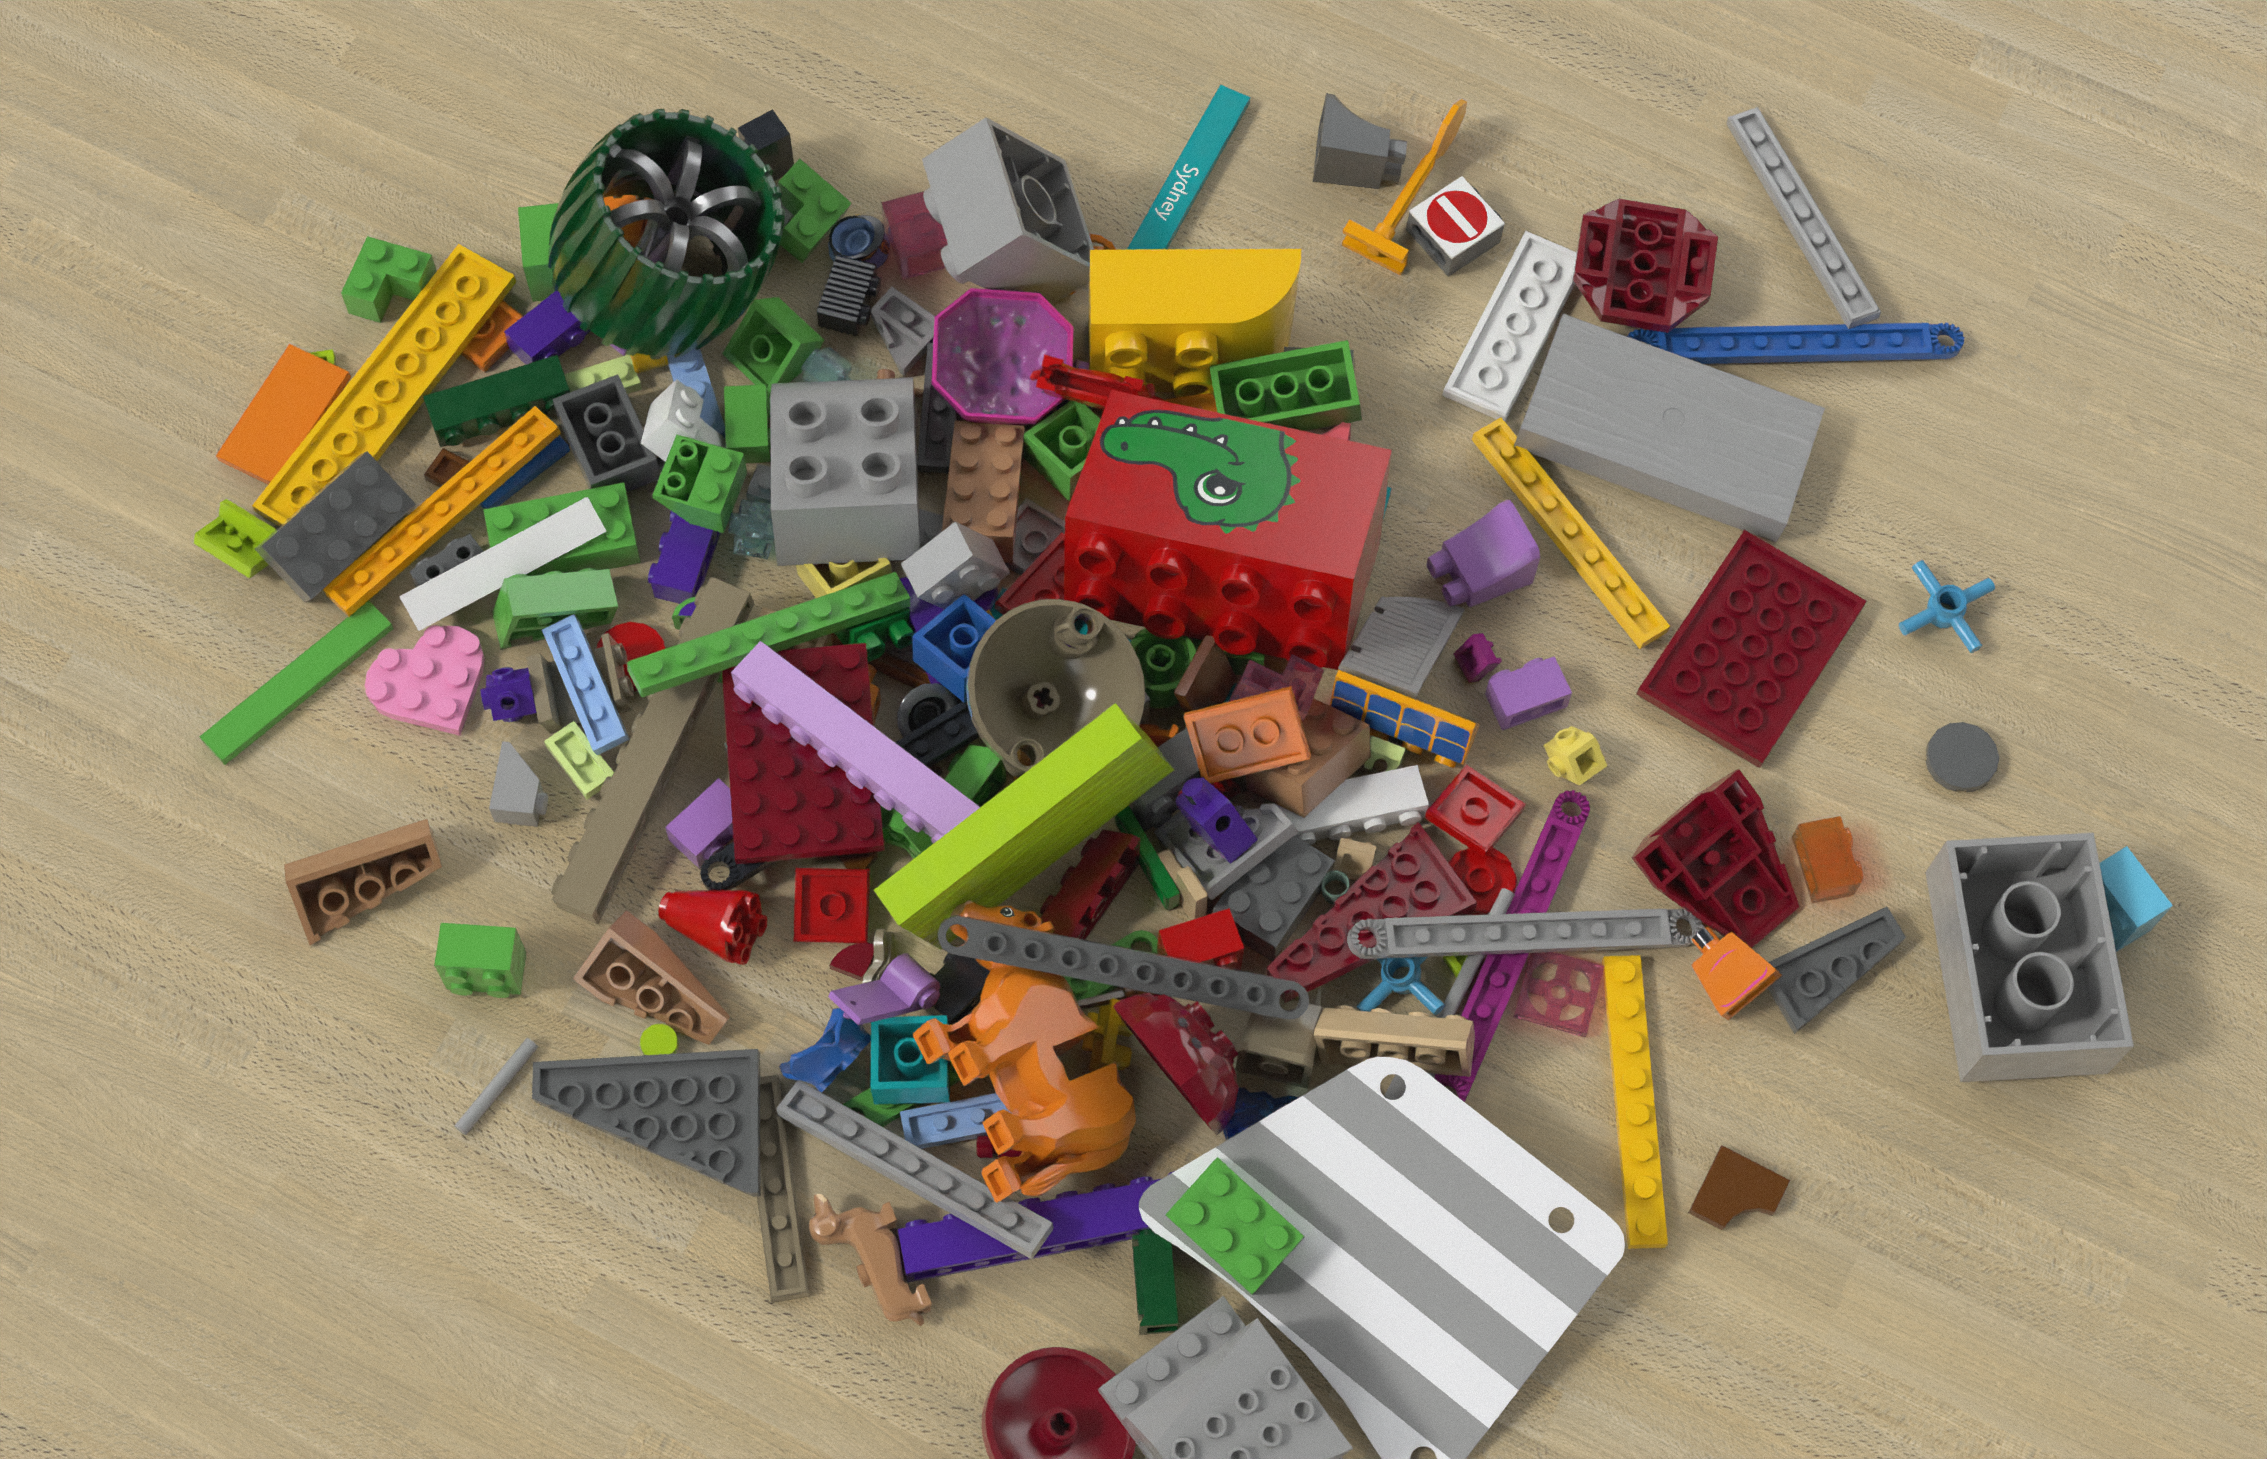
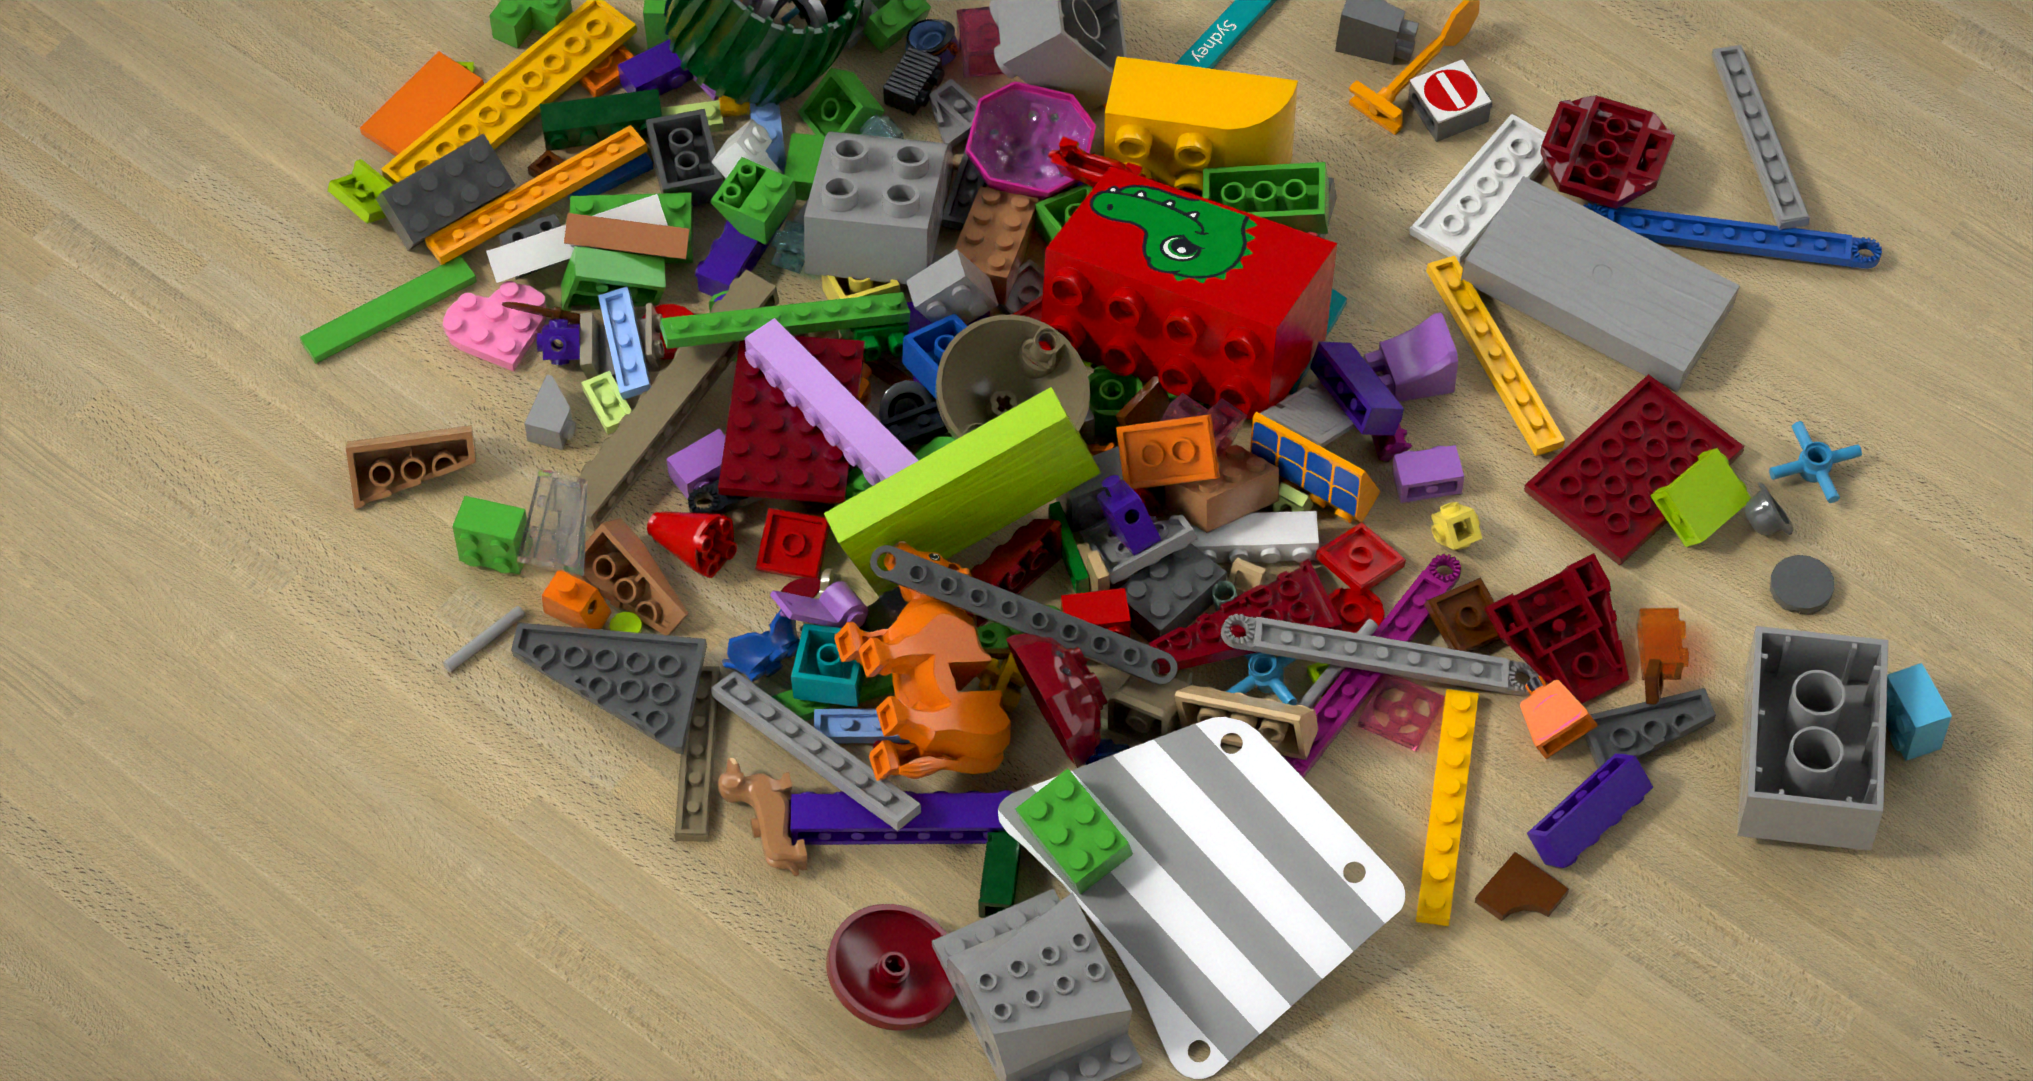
camera: 15 degrees right, 10 degrees down
(495, 658) = (555, 313): none -> reddish brown piece
(555, 937) = (556, 524): none -> clear wedge
(561, 553) = (626, 236): none -> nougat tile
(595, 1027) = (570, 600): none -> orange torso
(1432, 606) = (1356, 388): none -> dark purple brick
(1605, 865) = (1462, 616): none -> reddish brown tile
(1795, 1082) = (1590, 810): none -> dark purple brick
(1833, 911) = (1654, 681): none -> reddish brown tile
(1838, 676) = (1702, 498): none -> lime panel
(1909, 681) = (1766, 514): none -> dark grey hat

